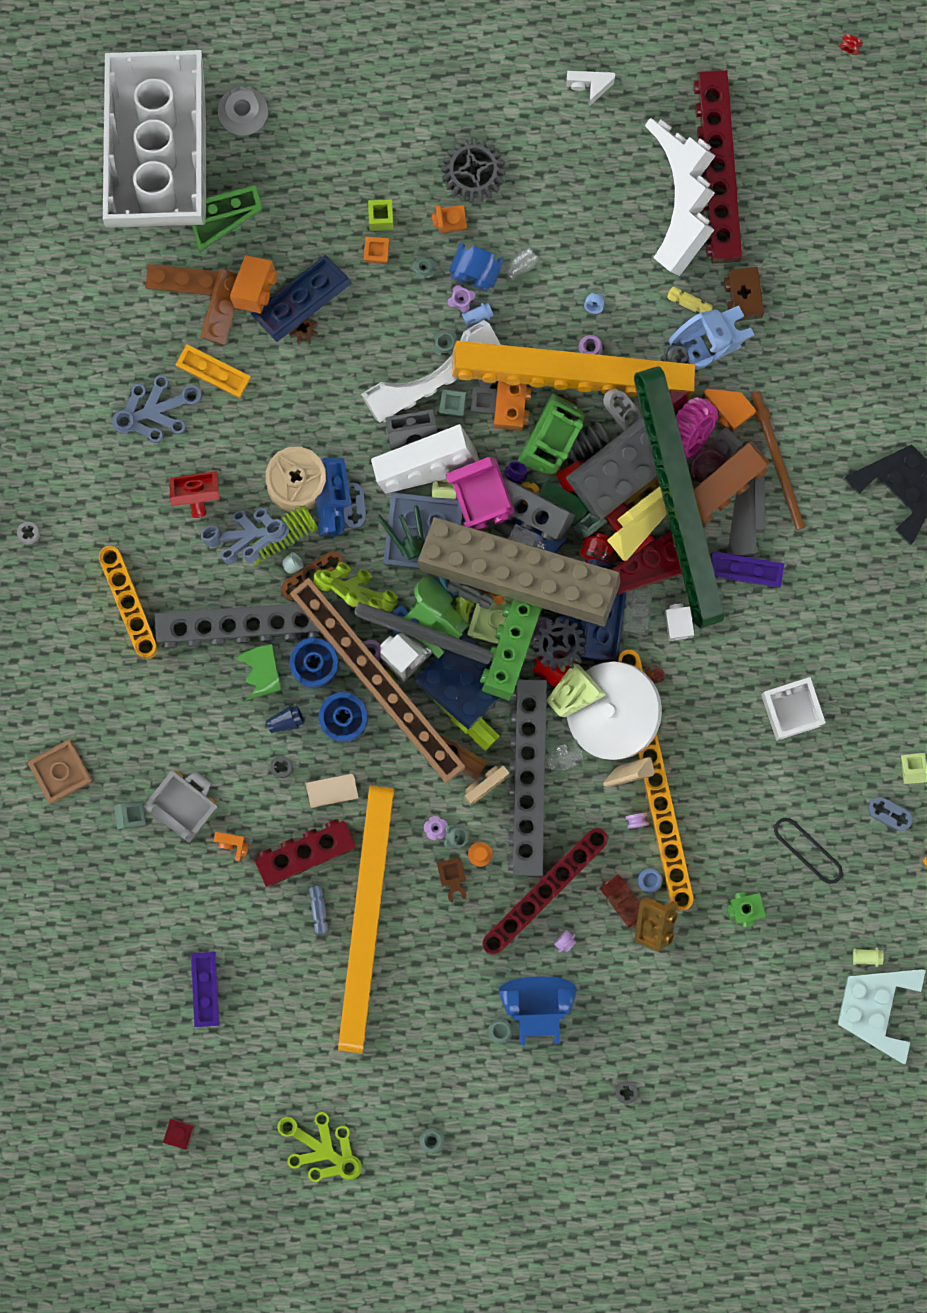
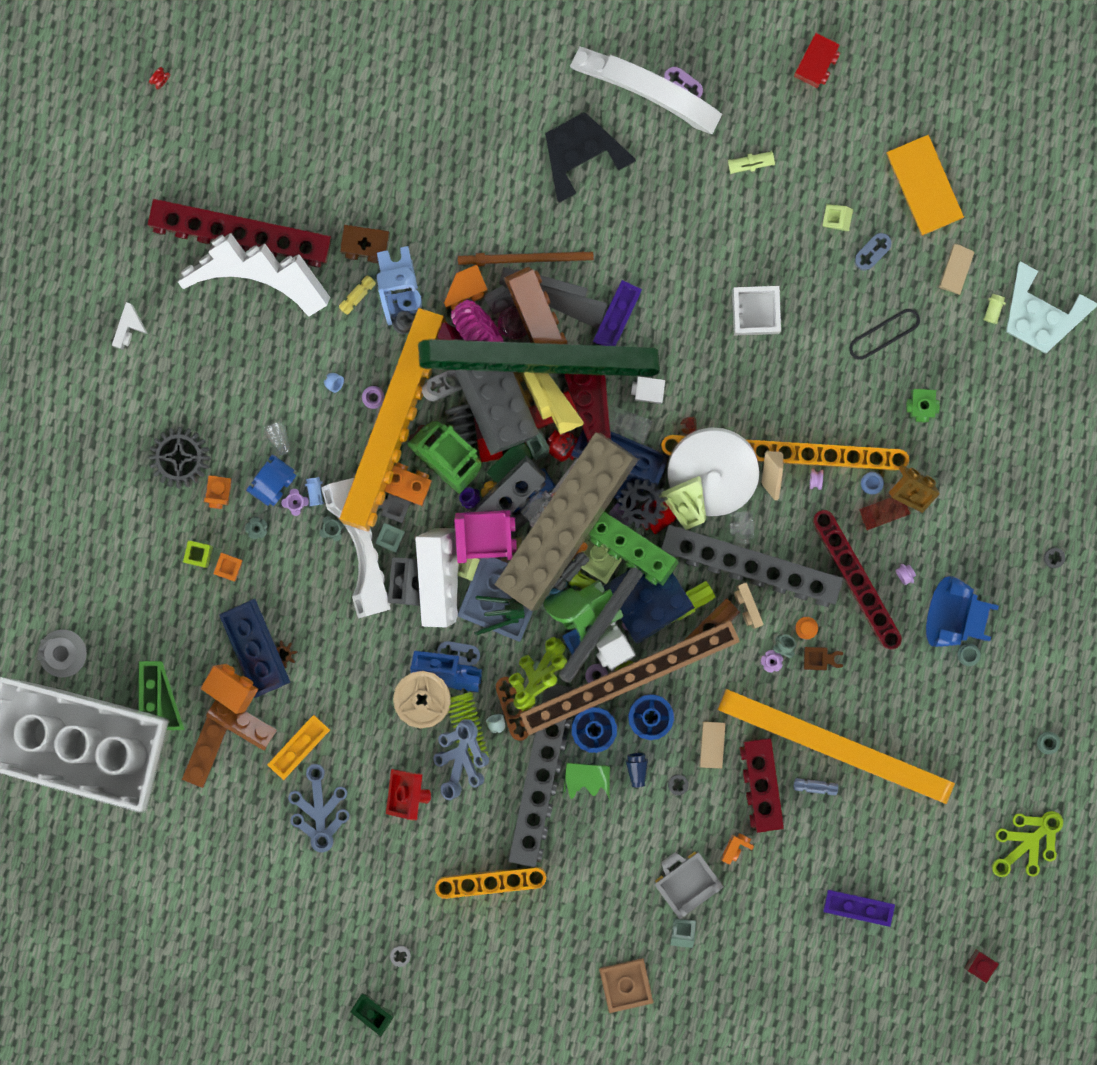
camera: 75 degrees left, 5 degrees up
(897, 906) = (956, 269): none -> tan slope

